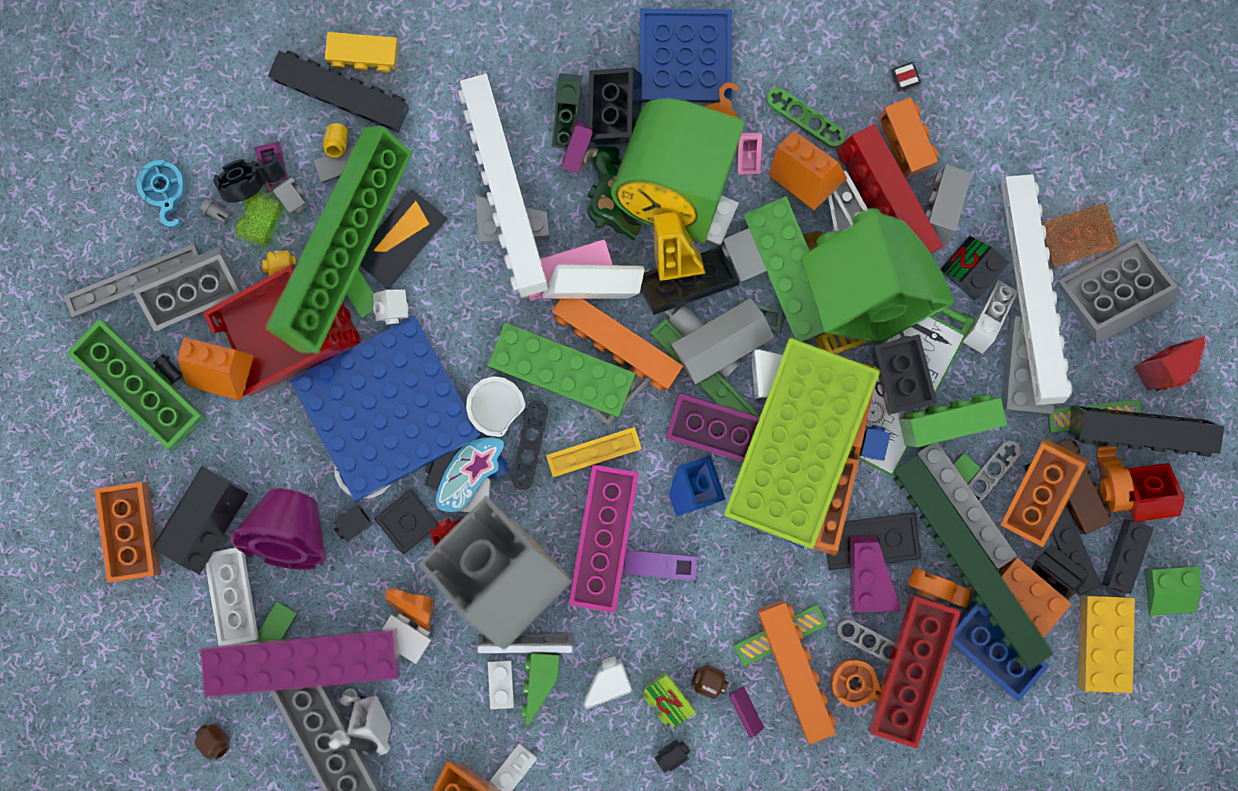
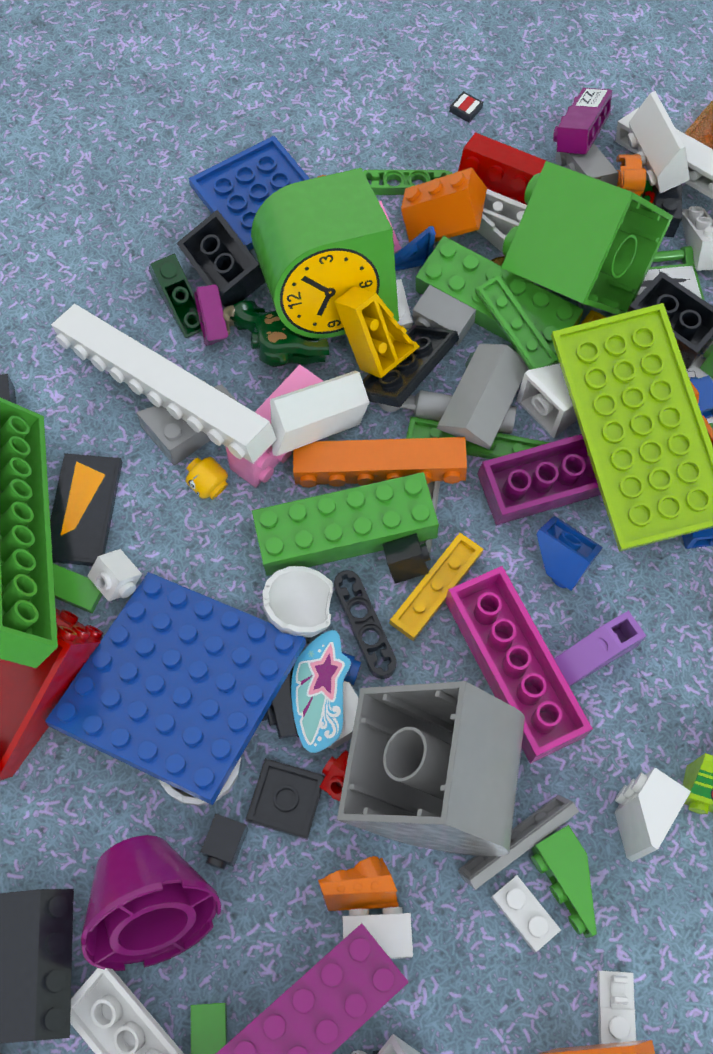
camera: 30 degrees left, 20 degrees down
(494, 273) = (206, 477): none -> yellow head
(585, 421) = (406, 558): none -> black brick
(765, 190) = (416, 251): none -> blue tile
(782, 304) = (516, 323): none -> bright green tile
(908, 137) = (512, 128): orange brick -> none
(962, 241) = (631, 173): none -> orange piece
(976, 161) = (583, 121): none -> magenta brick
(1002, 231) = (658, 145): none -> white slope

